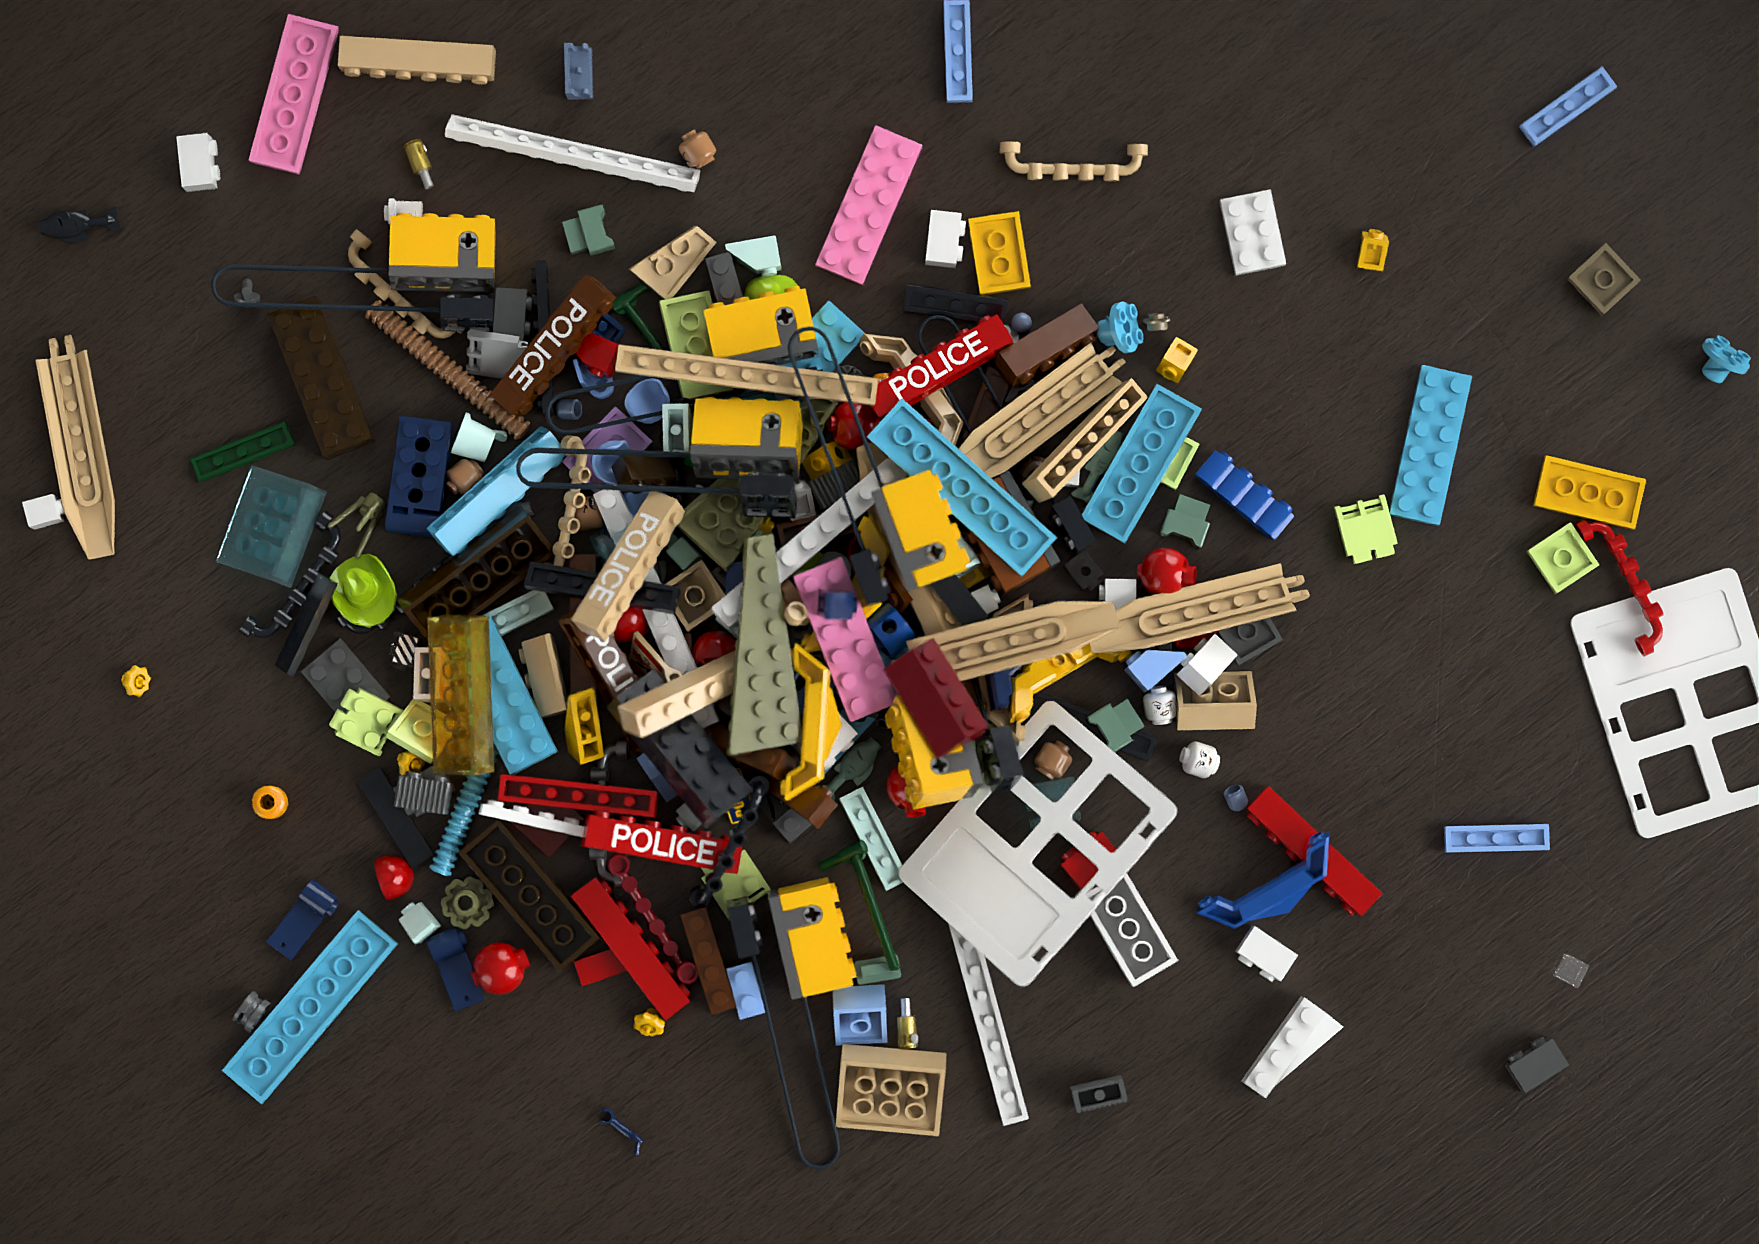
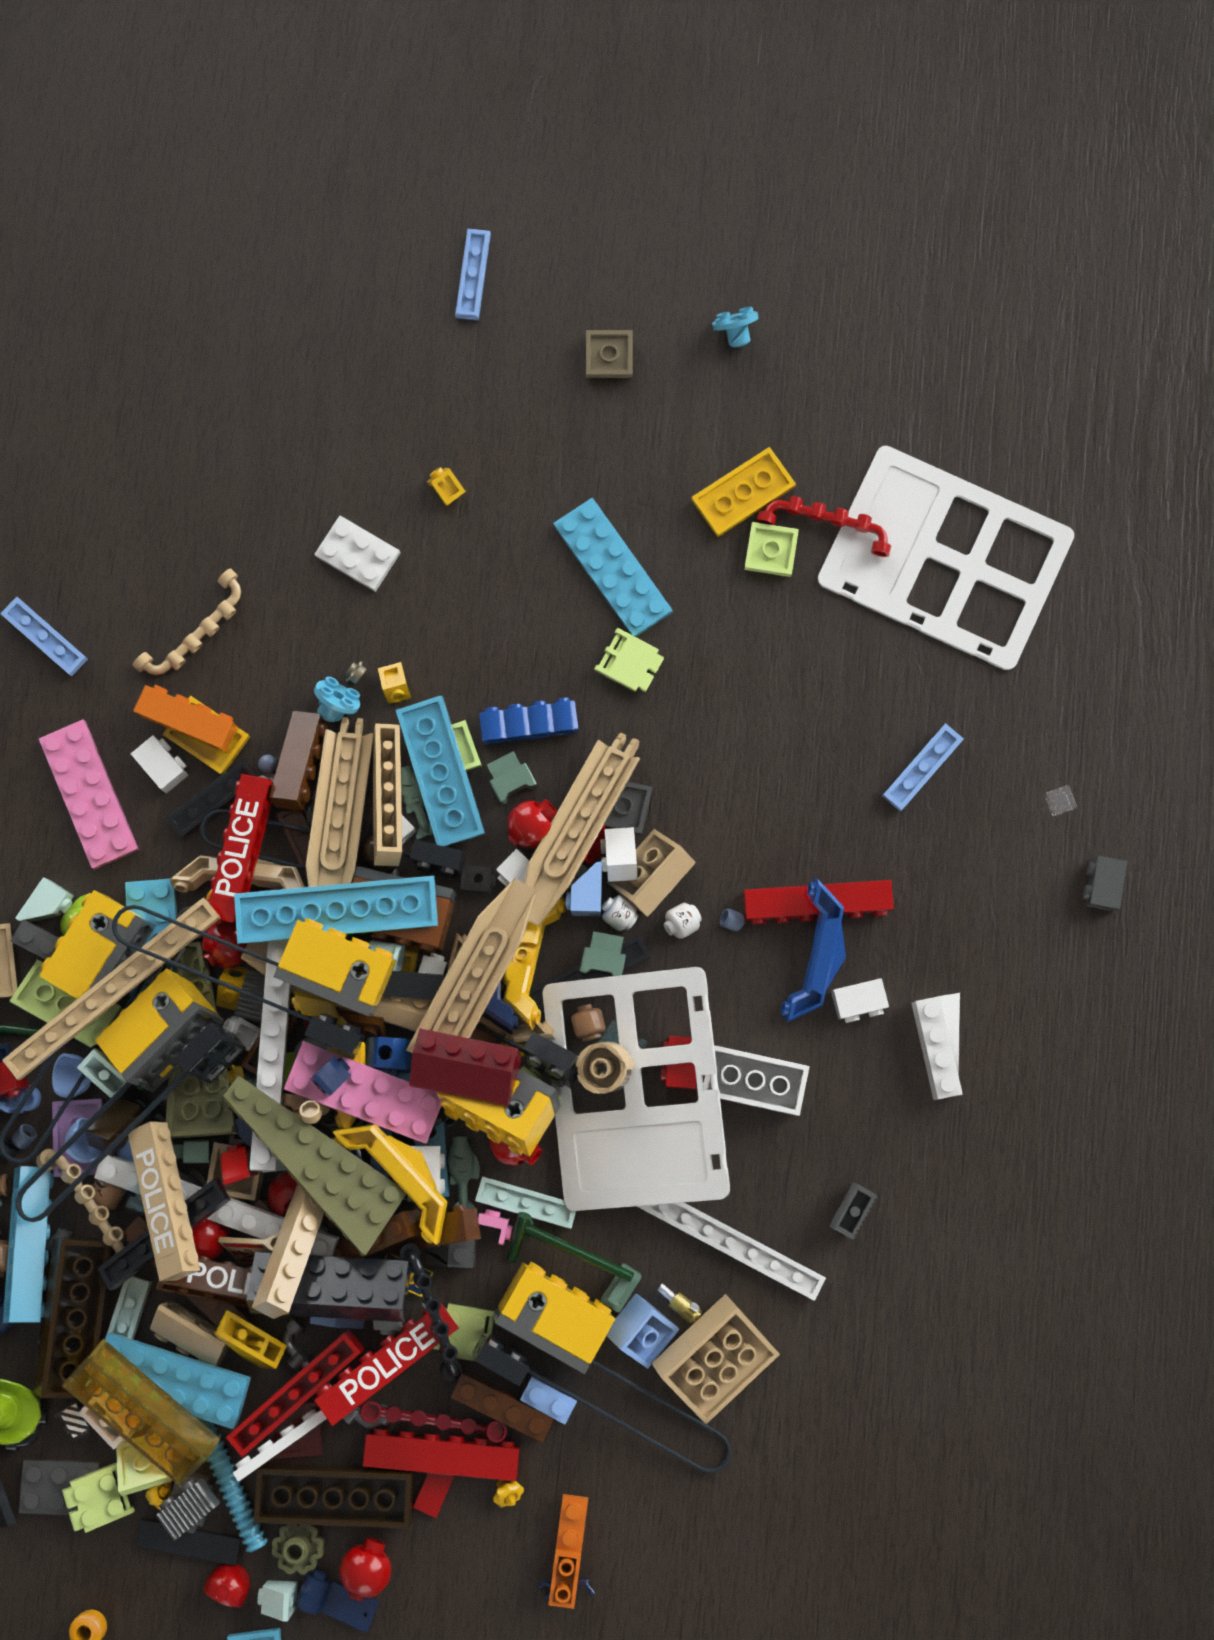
camera: 40 degrees left, 5 degrees down
(650, 1106) = (568, 1551): none -> orange slope
(704, 593) = (236, 1164): none -> red slope
(838, 824) = (493, 1219): none -> bright pink bracket
(998, 226) = (182, 717): none -> orange brick
(1022, 794) = (591, 1071): none -> tan brick

